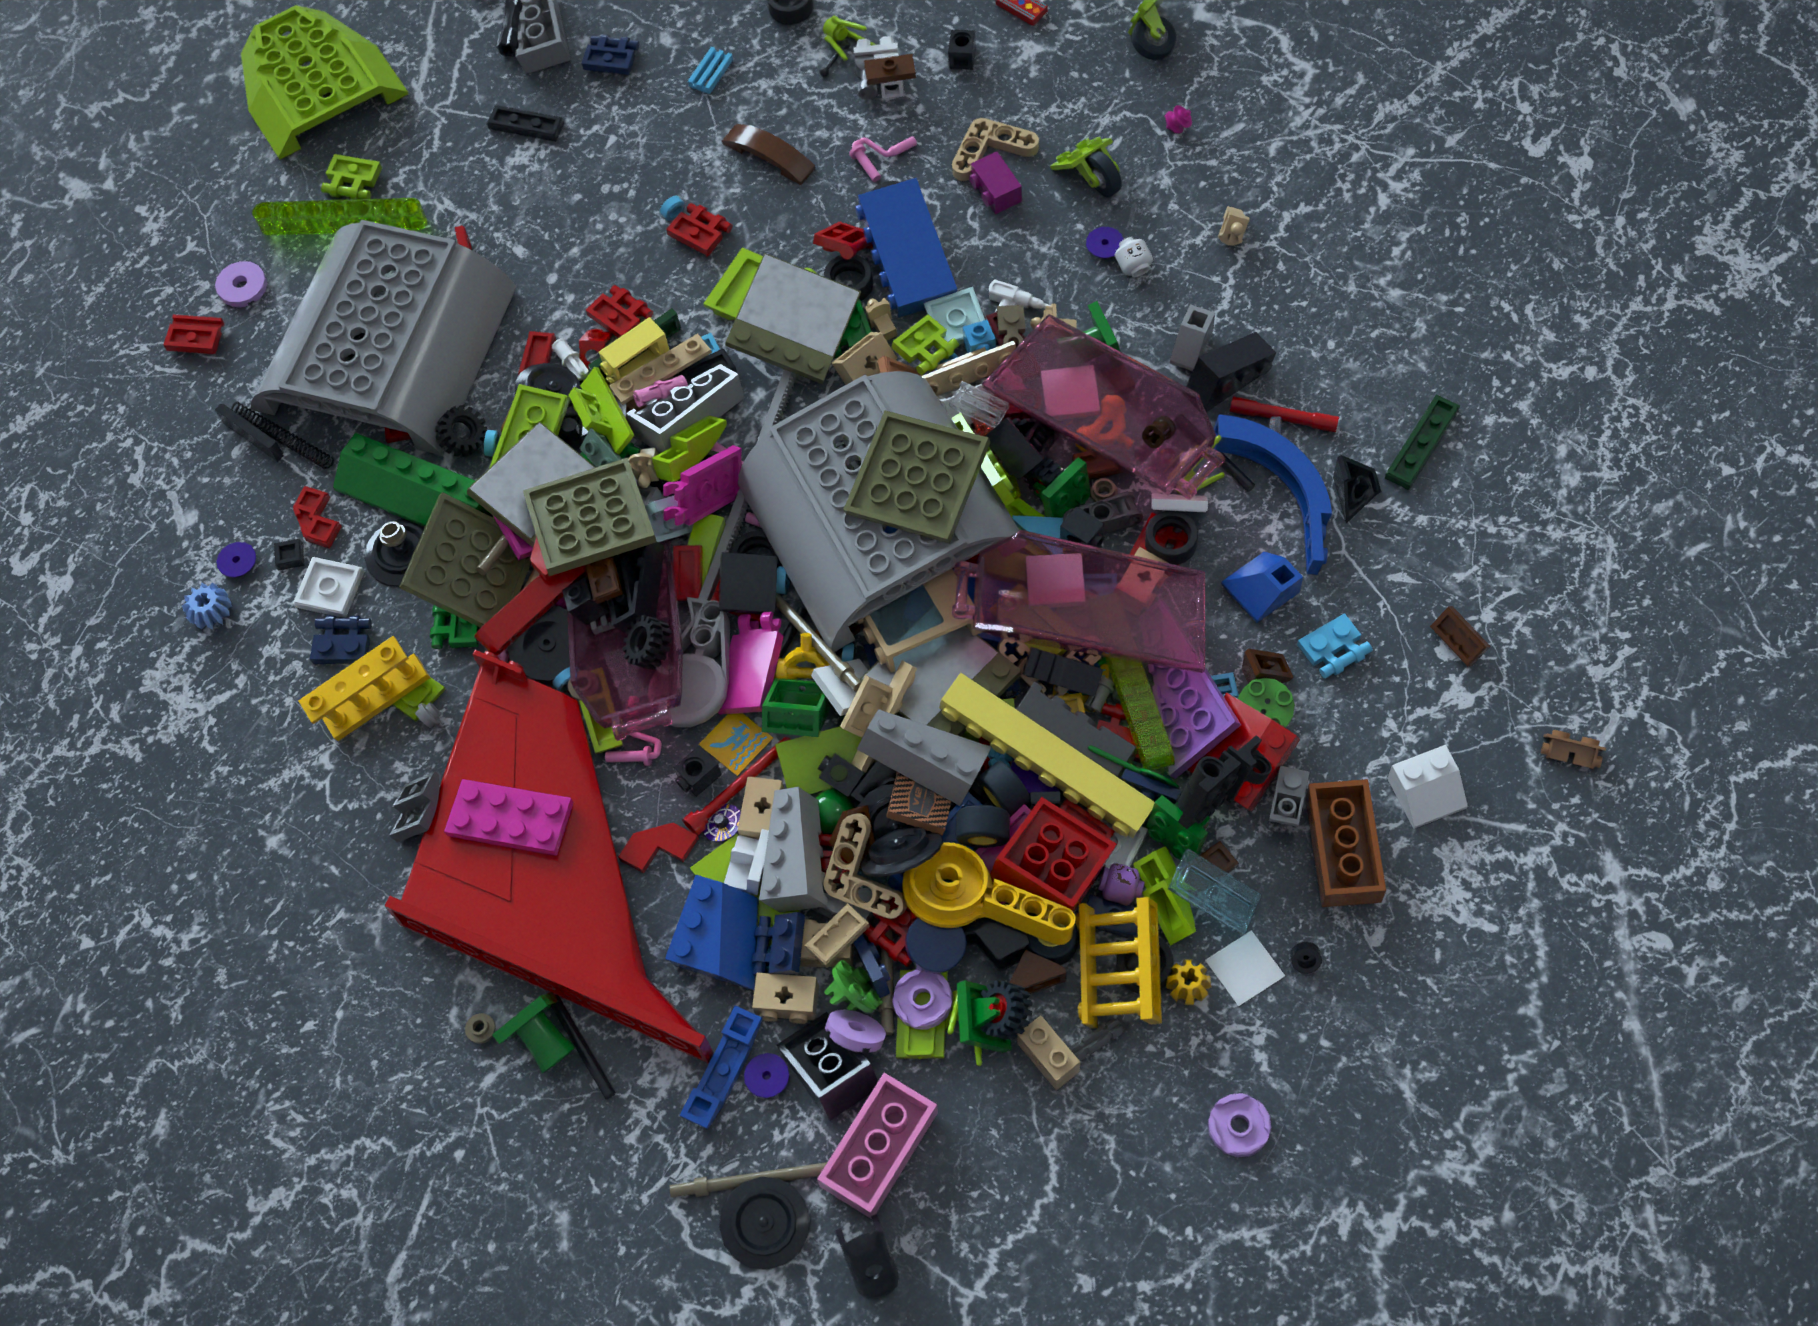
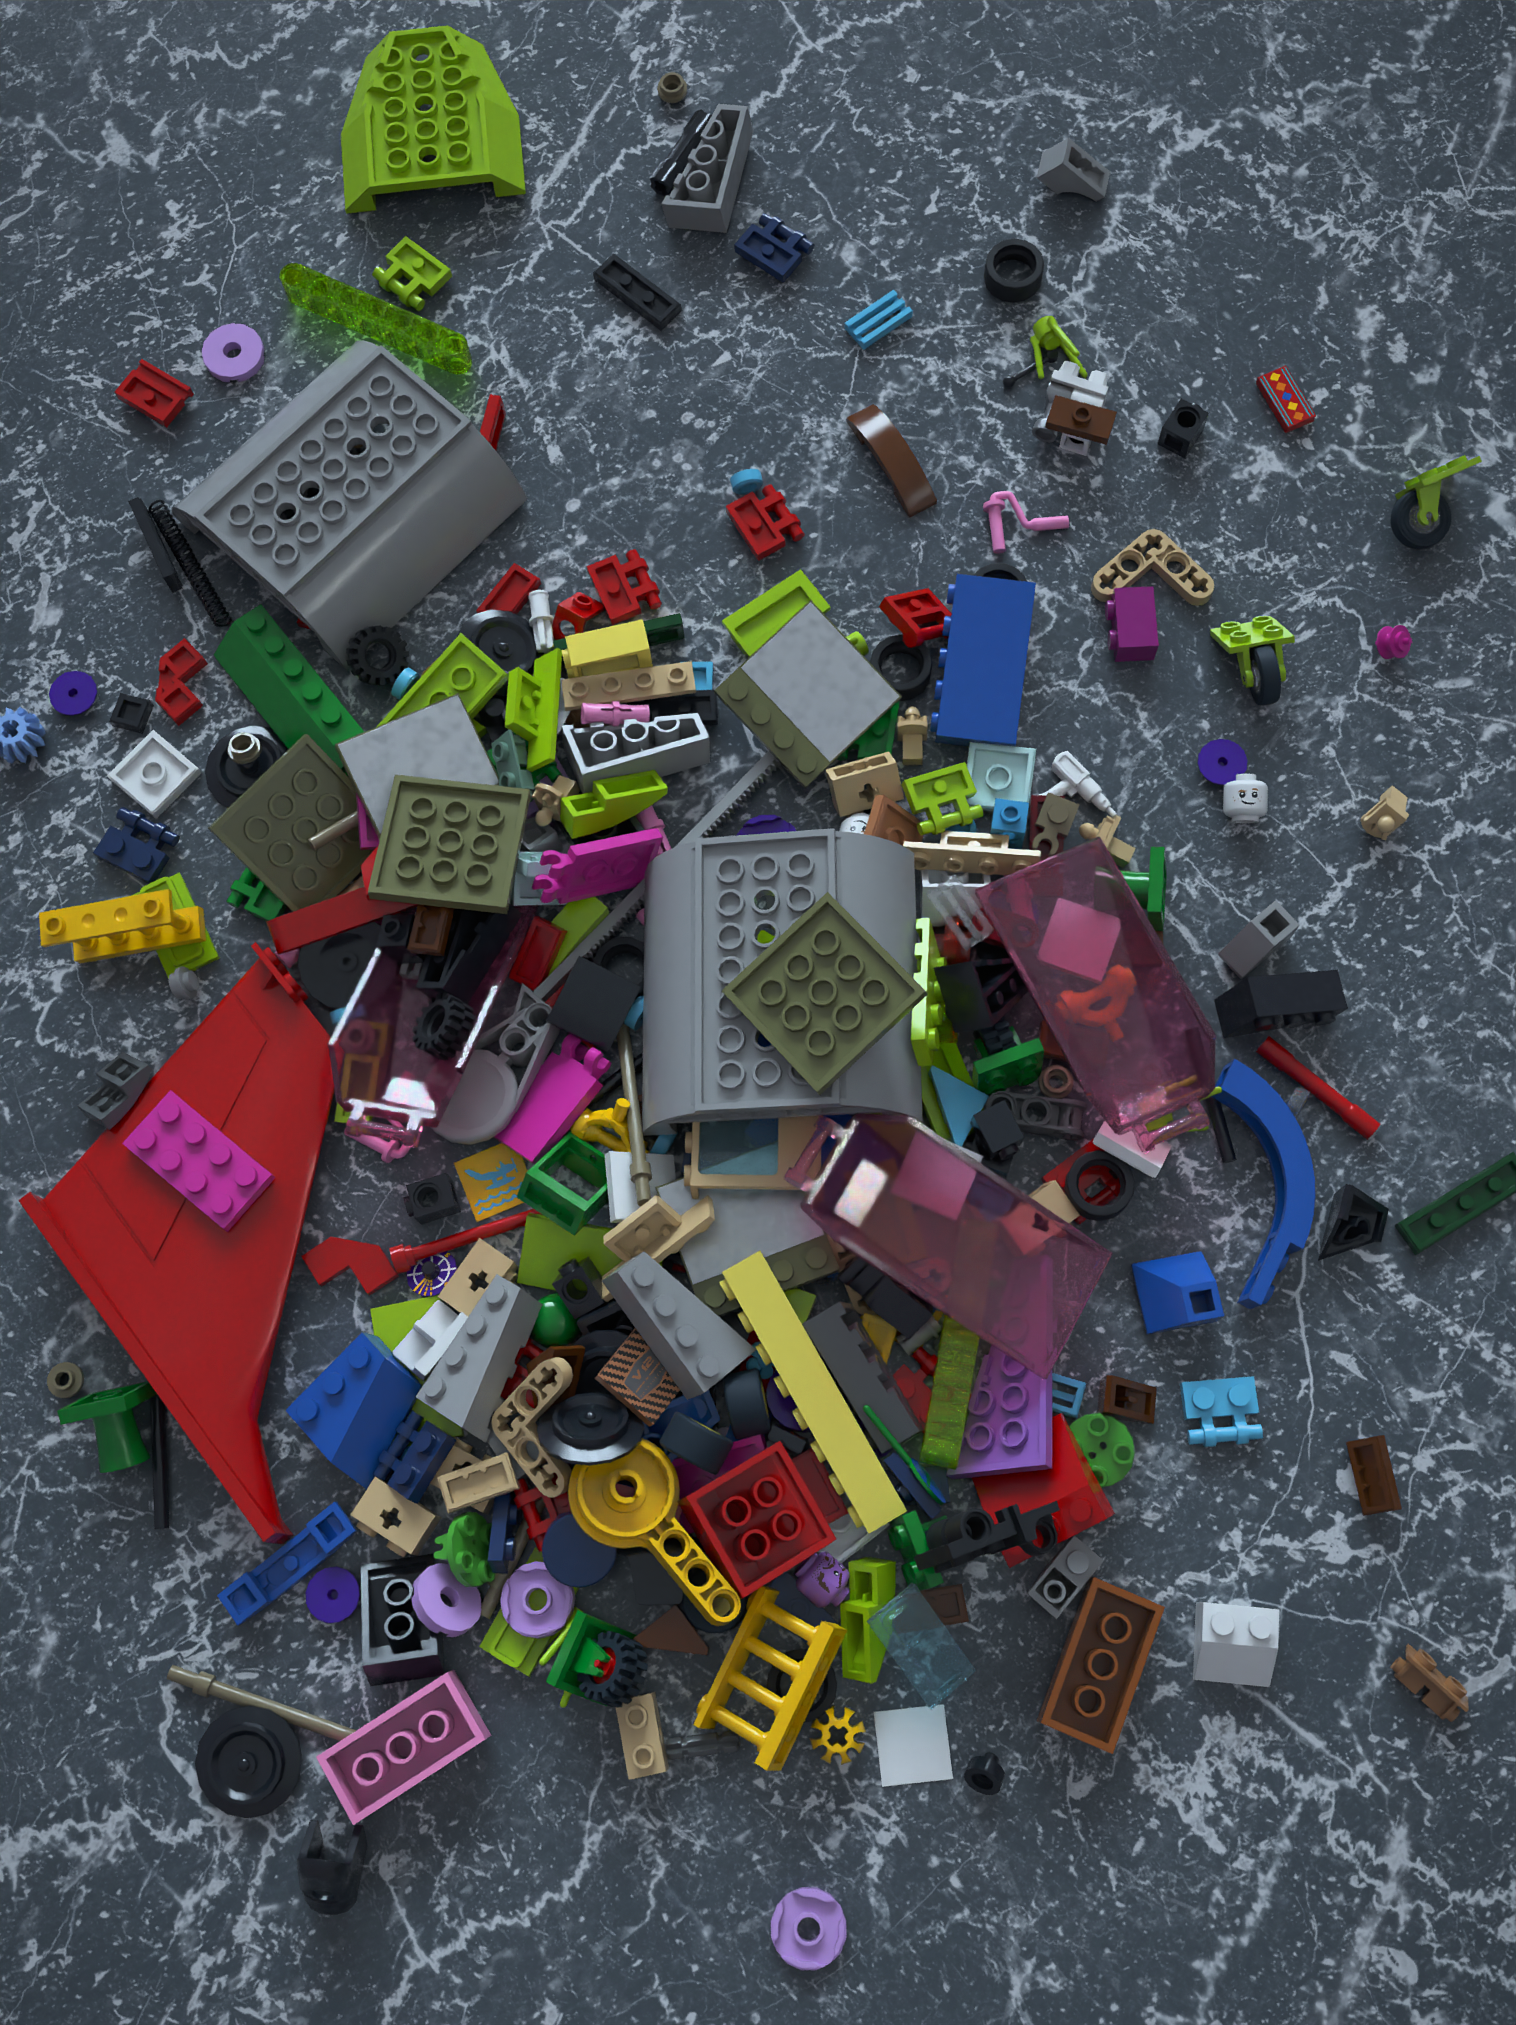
camera: 25 degrees right, 10 degrees up
(1159, 426) = (1147, 1050): dark brown bush -> none

